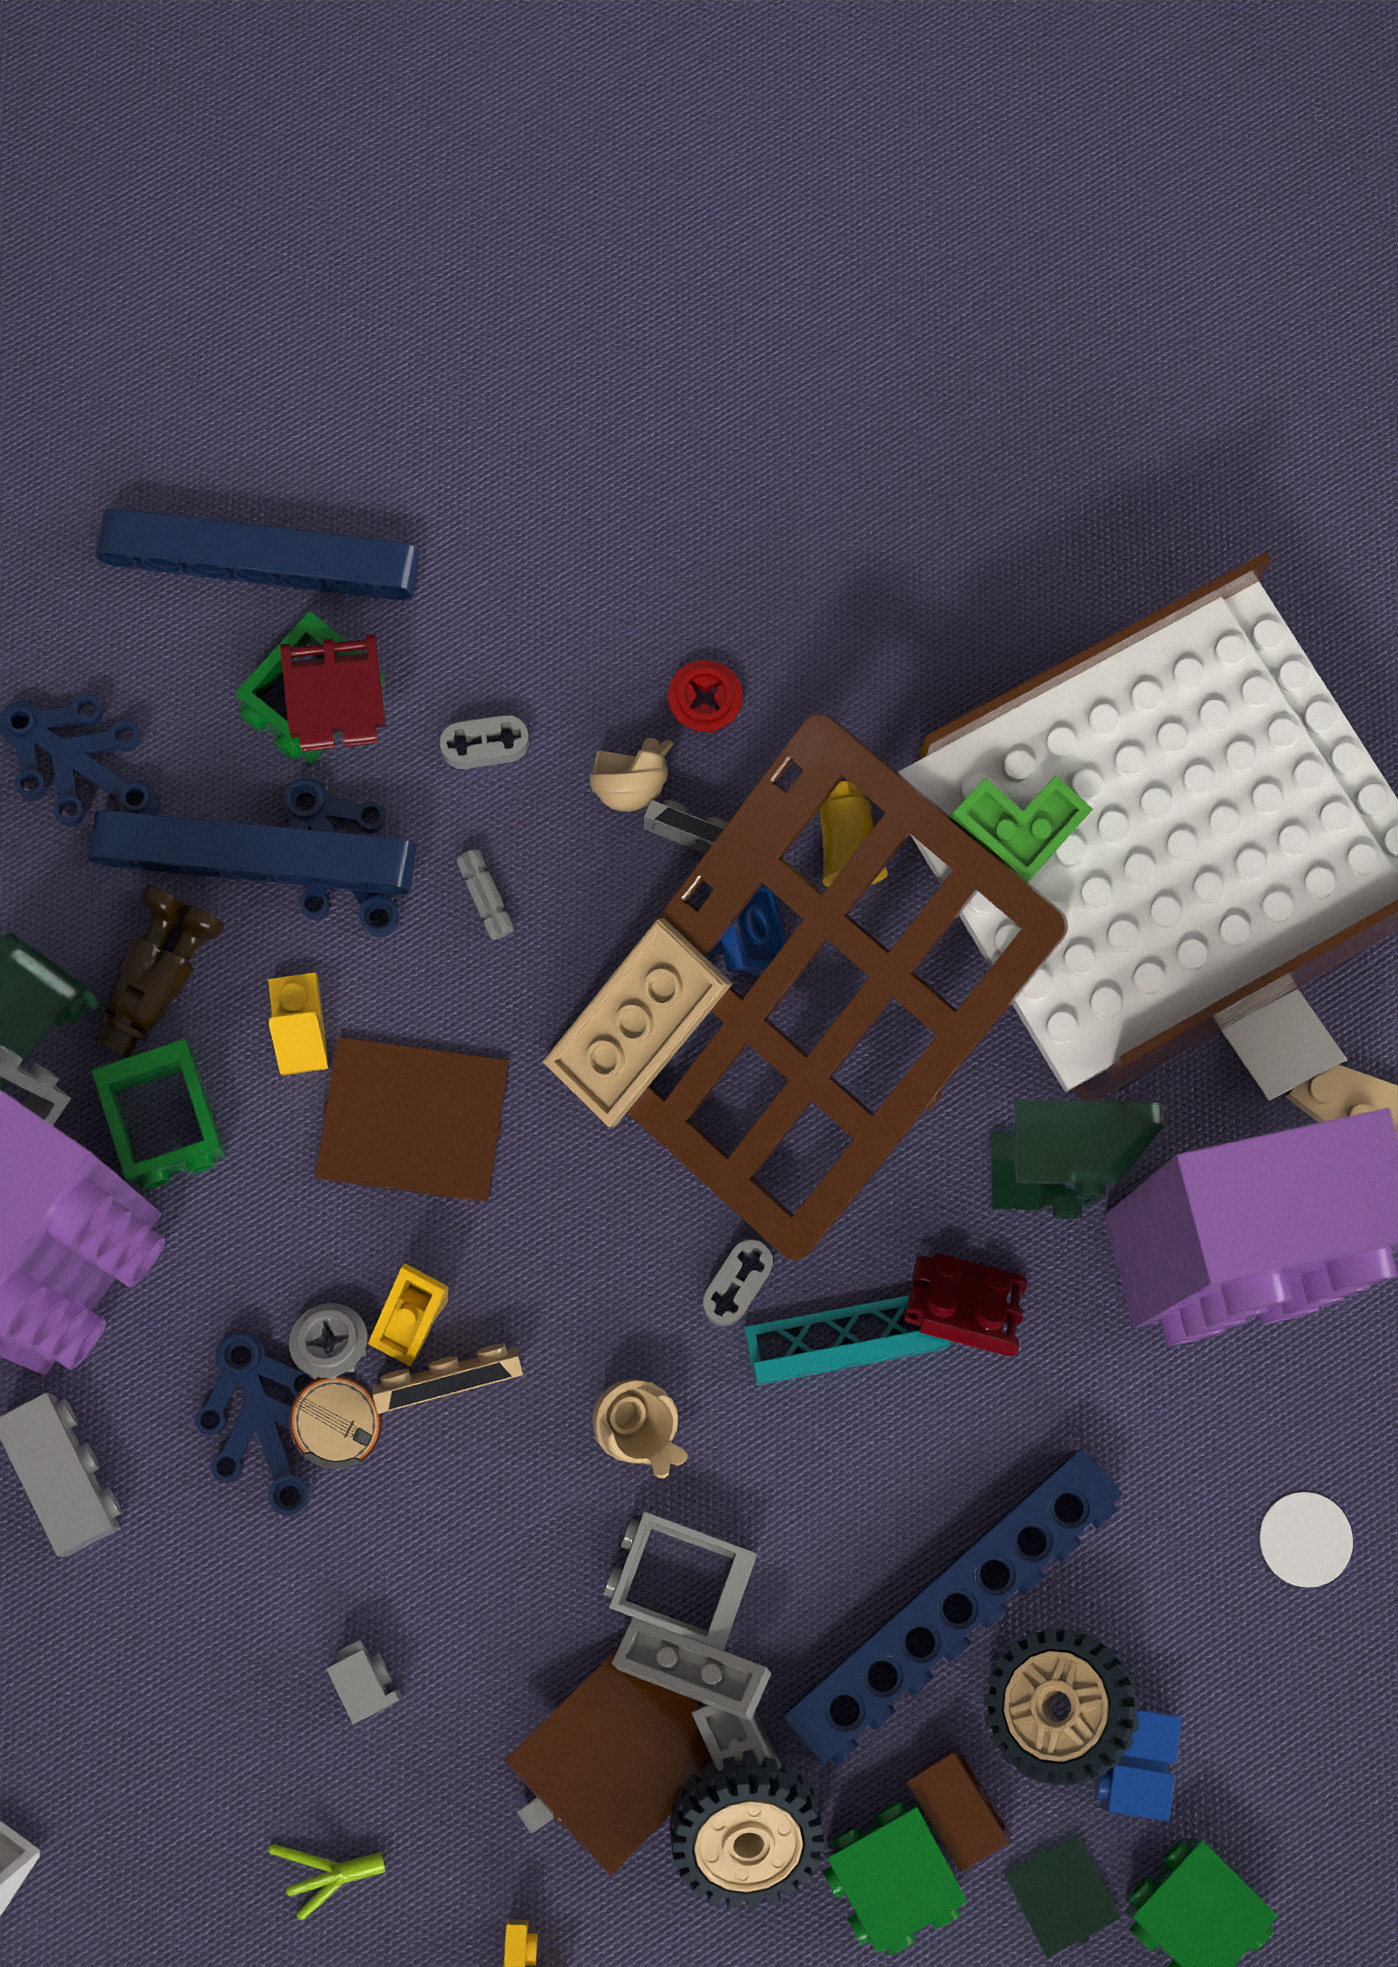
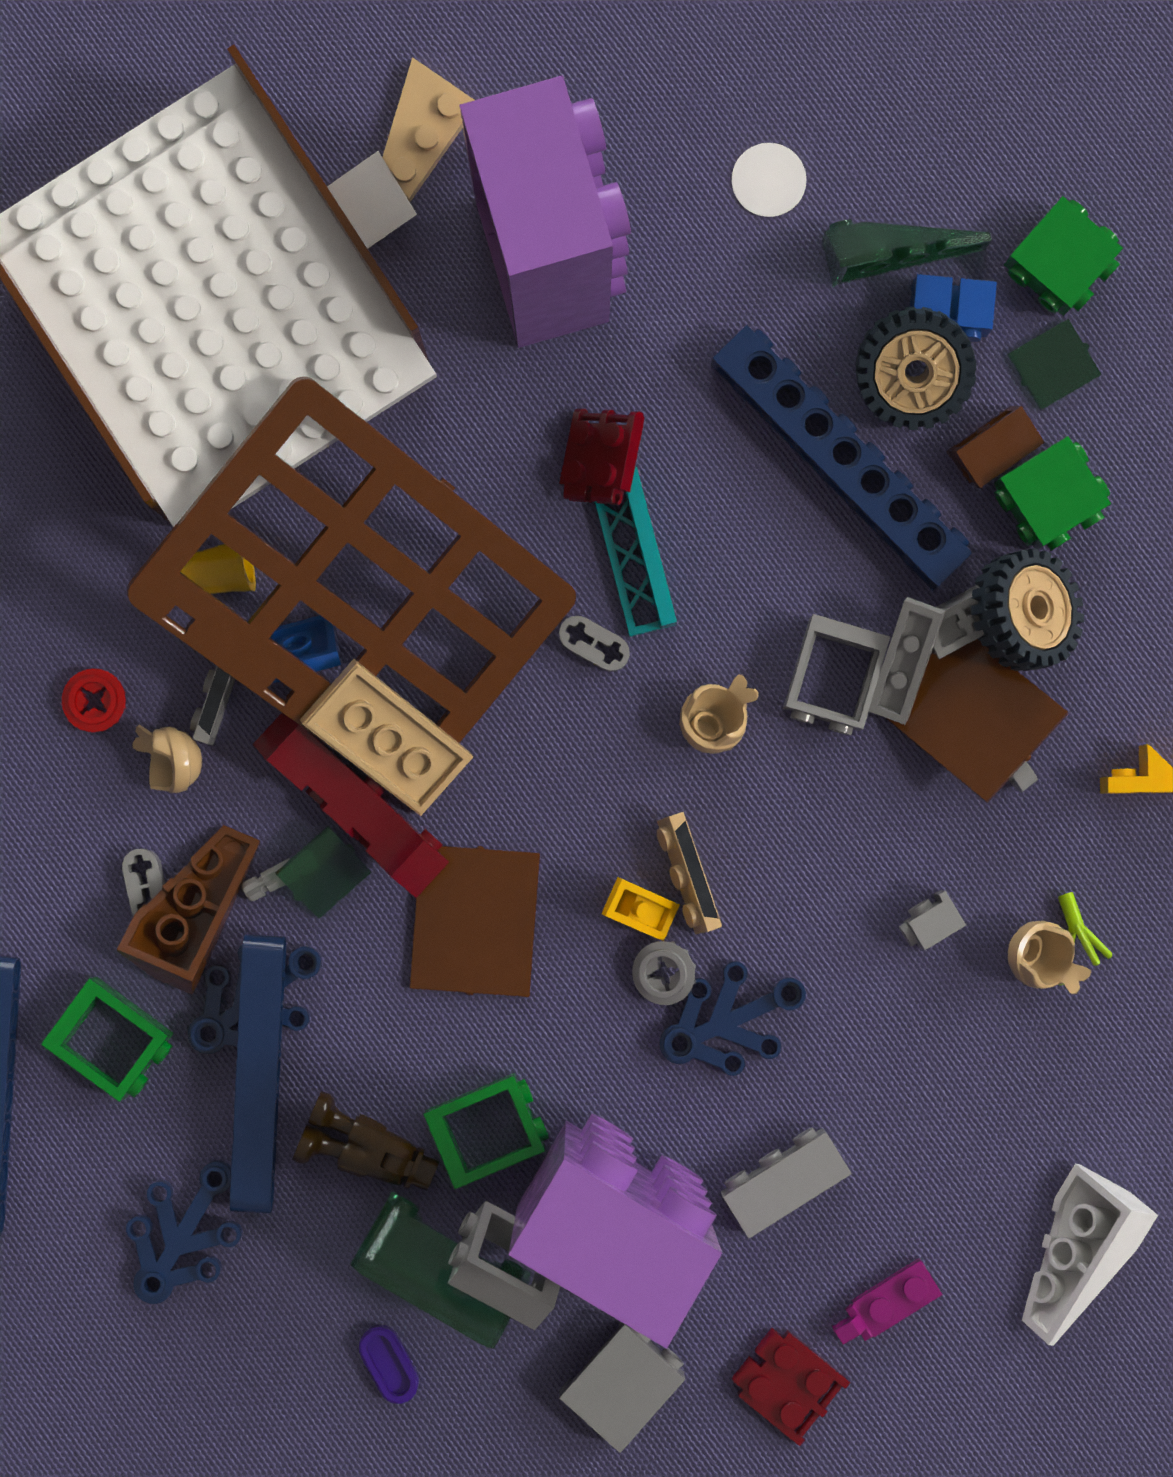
camera: 90 degrees left, 10 degrees up
(297, 1024) = (400, 1022): yellow slope -> none
(304, 1826) = (1043, 957): none -> tan hat
(333, 693) = (116, 1015): dark red plate -> none
(335, 1422) = (729, 961): tan sticker -> none
(441, 783) = (183, 922): none -> reddish brown wedge
(483, 943) = (323, 872): none -> clear green piece
(559, 985) = (353, 804): none -> dark red brick
(1017, 836) = (226, 415): bright green plate -> none
(1069, 1153) = (481, 373): clear green windscreen -> none
(1215, 1671) = (882, 248): none -> clear green wedge

